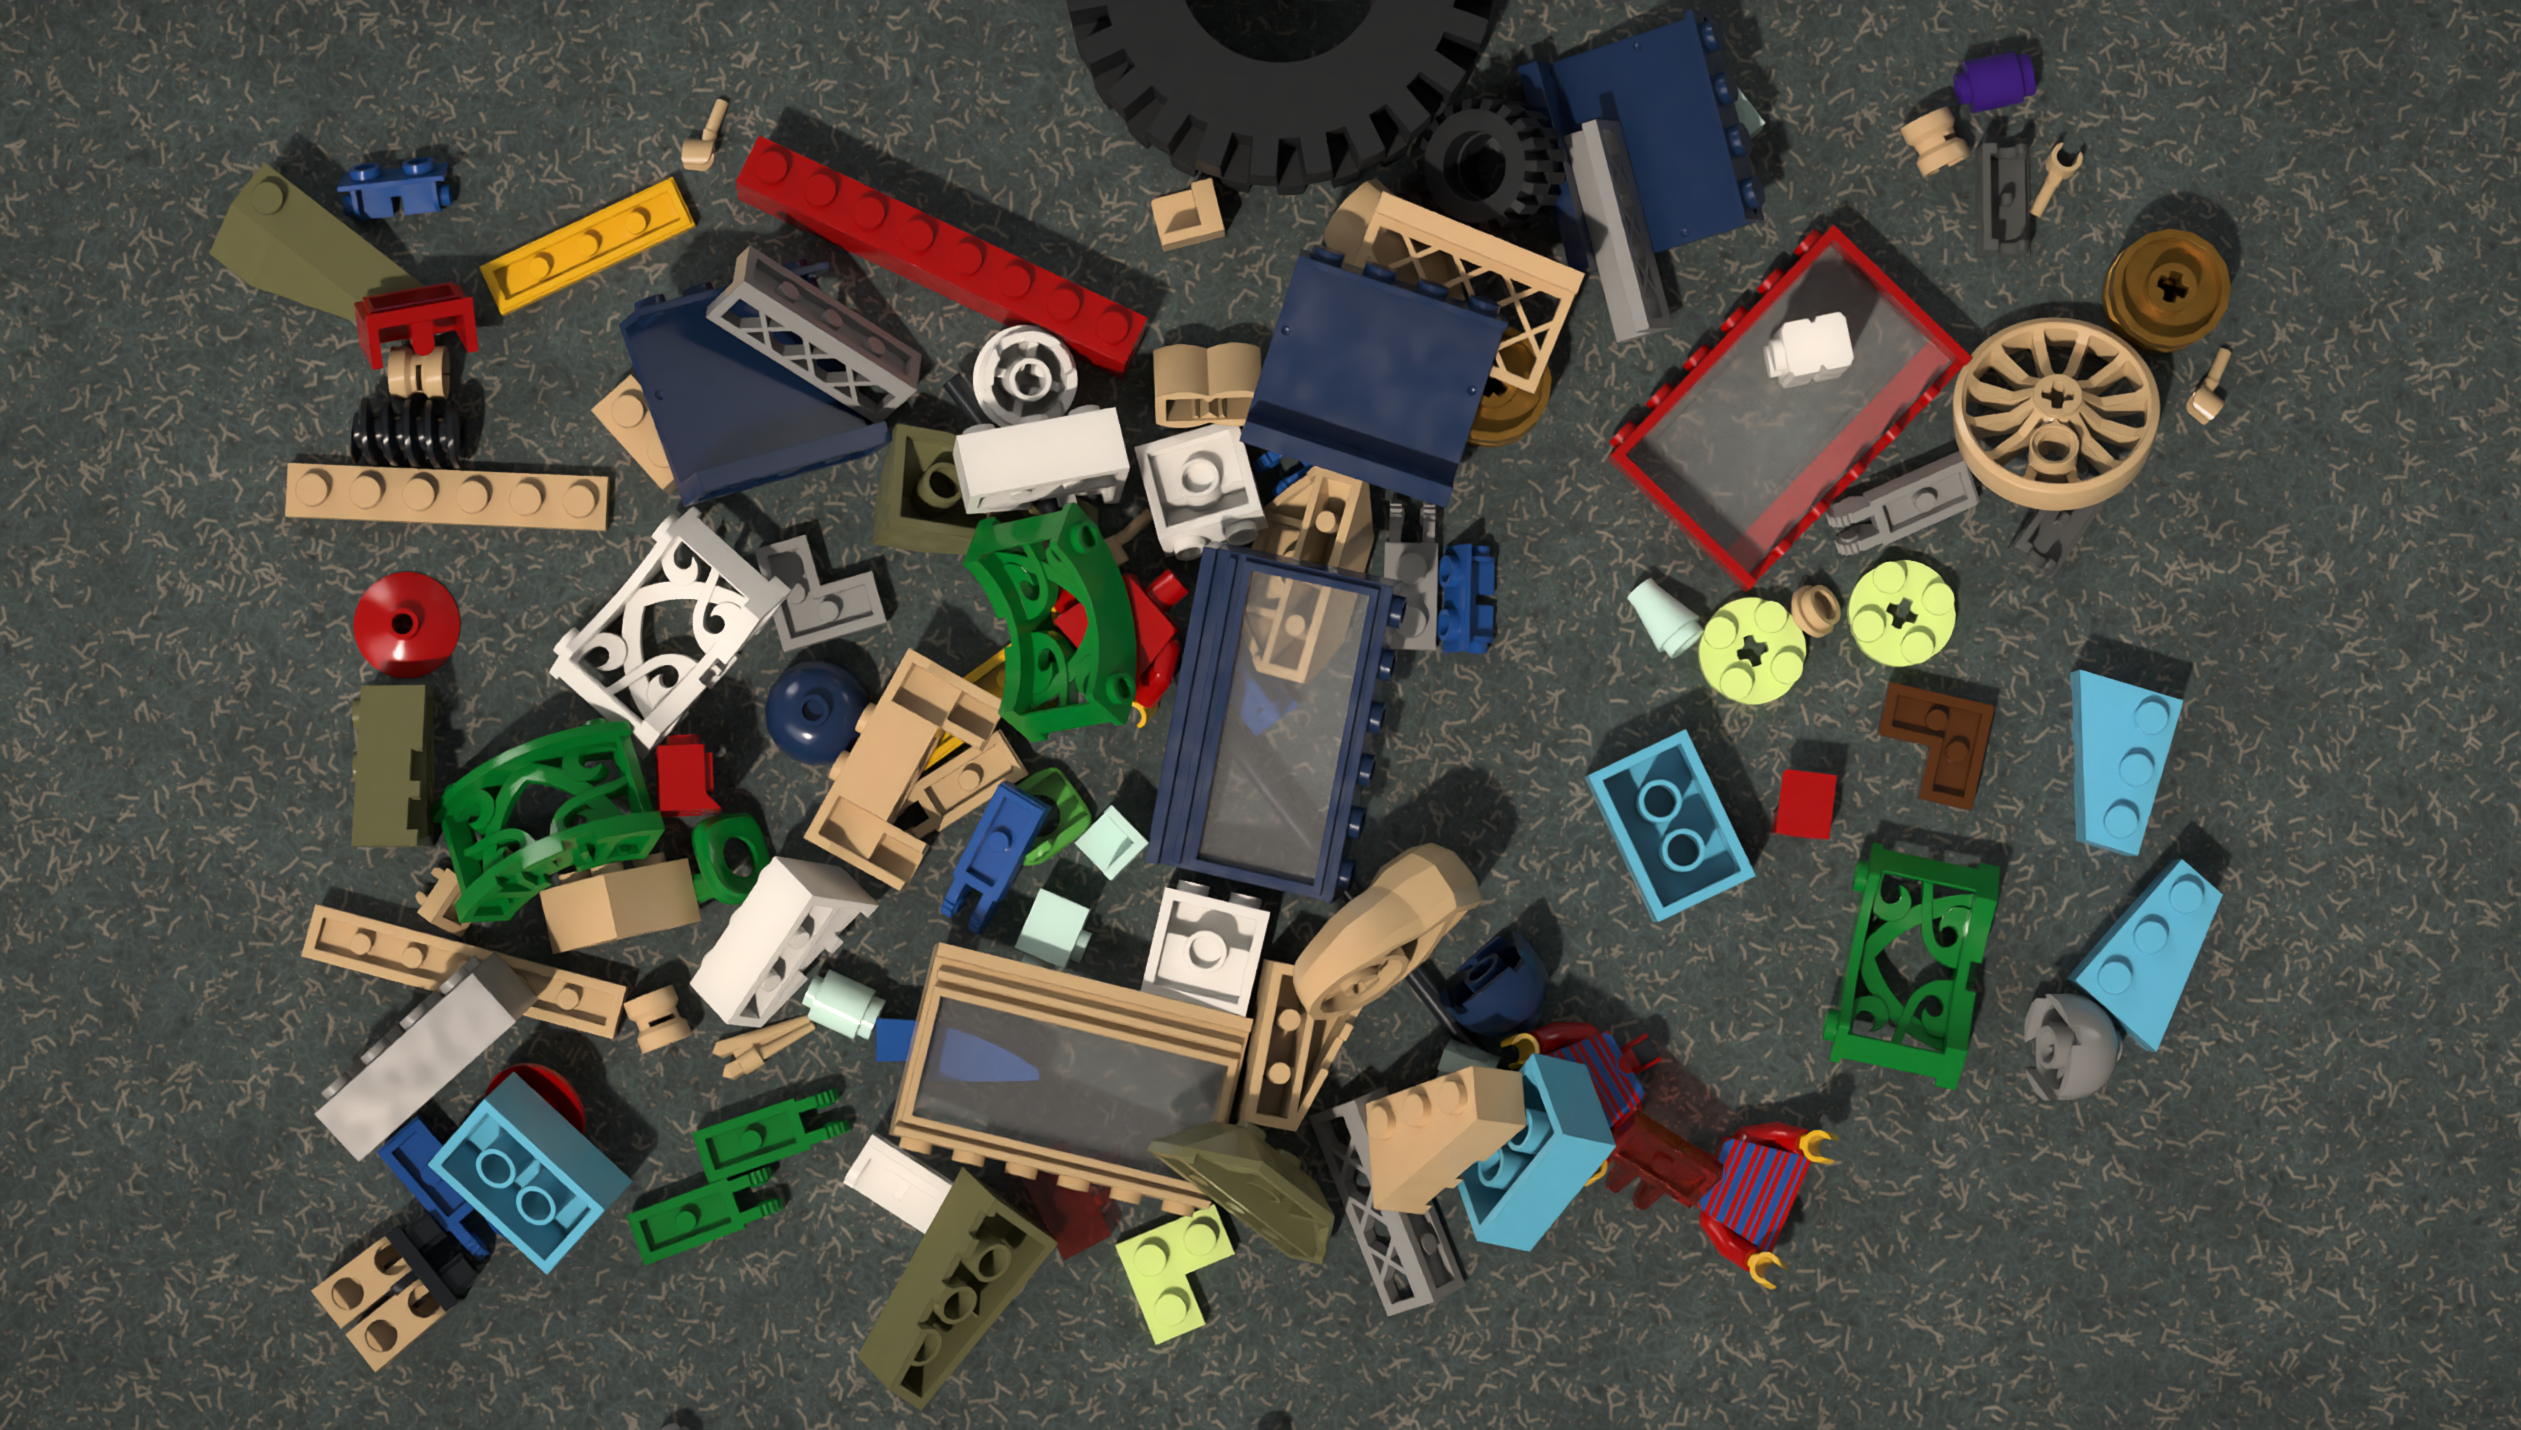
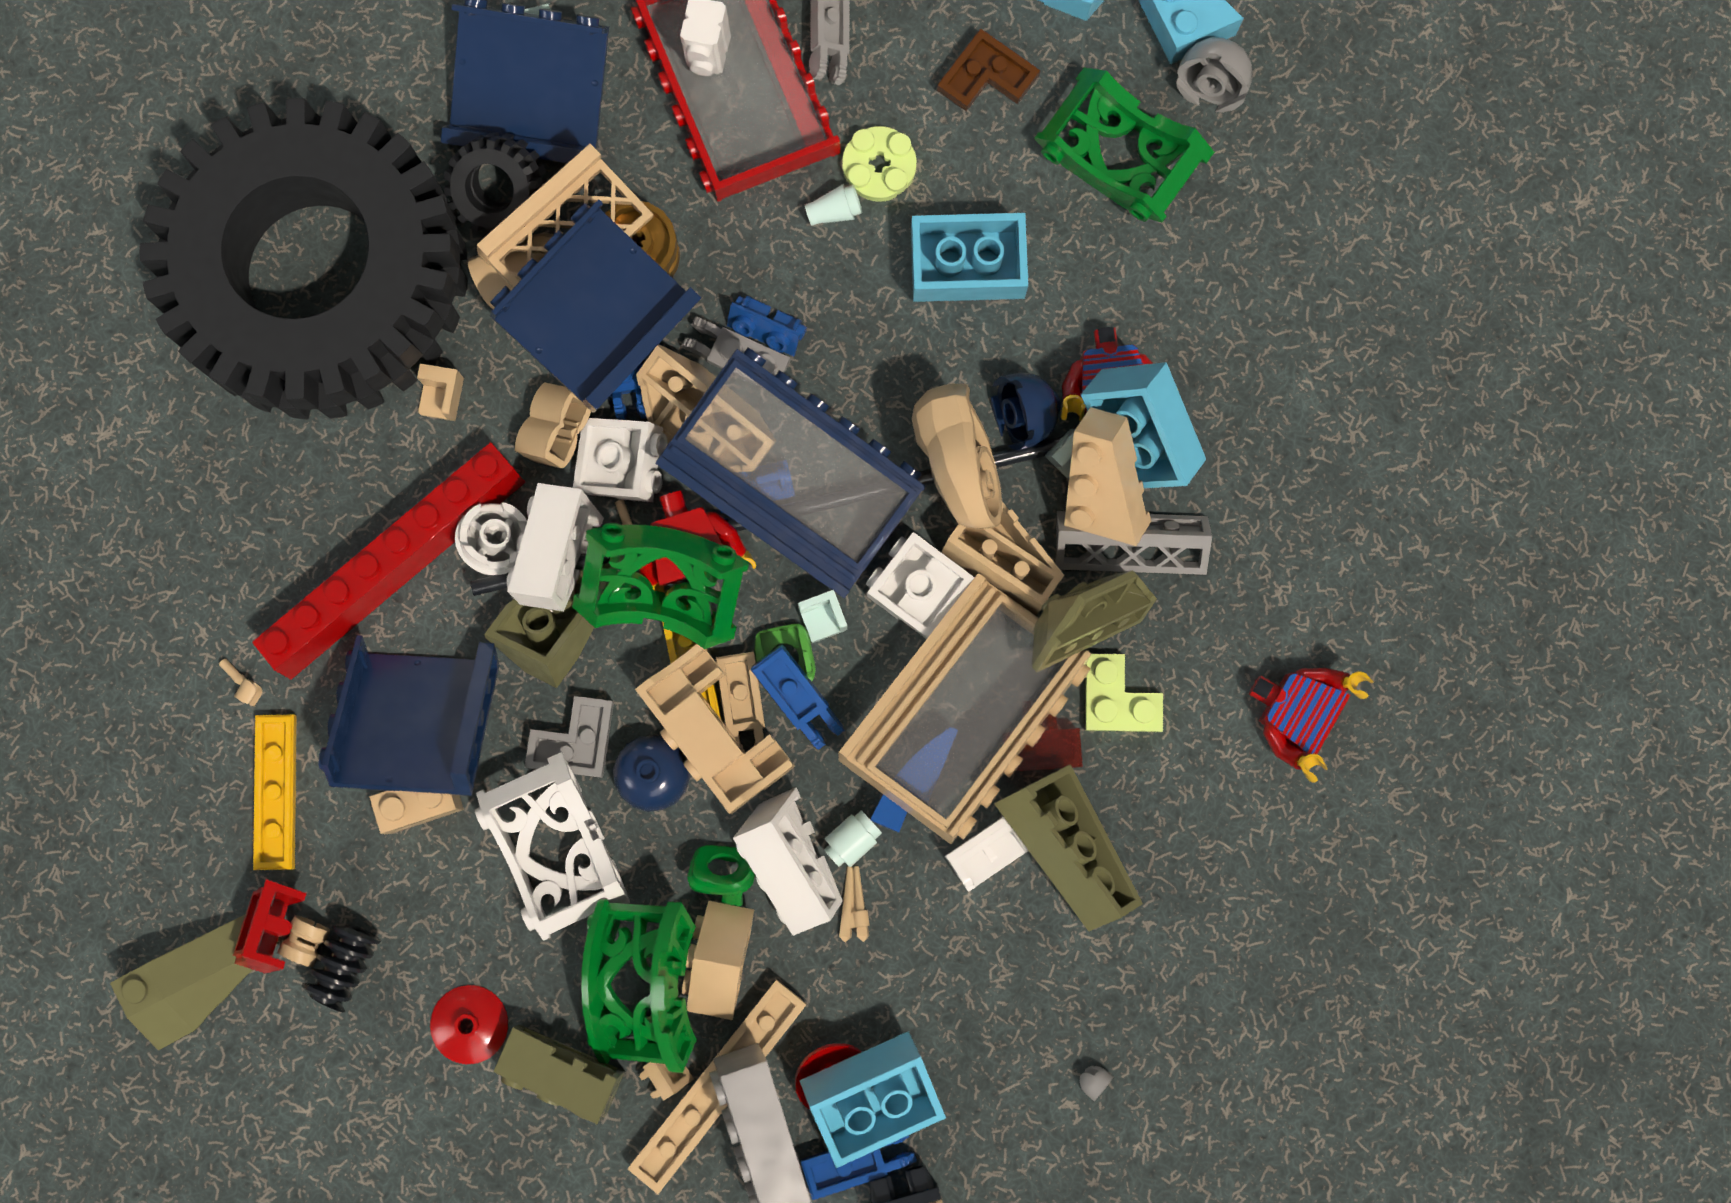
camera: 70 degrees left, 5 degrees down
(374, 188) = (177, 888): blue hinge -> none
(447, 497) = (395, 960): tan plate -> none
(655, 1007) = (797, 968): tan wheel -> none
(684, 778) = (654, 877): red window -> none
(698, 1216) = (950, 998): green hinge -> none
(763, 1136) = (915, 931): green hinge -> none
(826, 331) = (394, 652): light grey fence -> none
(1054, 932) = (863, 678): light aqua brick -> none
(1618, 230) = (574, 126): light grey fence -> none
(1662, 1161) = (1186, 350): clear red hinge -> none
(1757, 1191) = (1223, 307): torso -> none
(1805, 805) = (993, 169): red panel -> none
(1815, 610) = (871, 112): tan plate -> none
(1930, 601) = (896, 42): yellowish green plate -> none

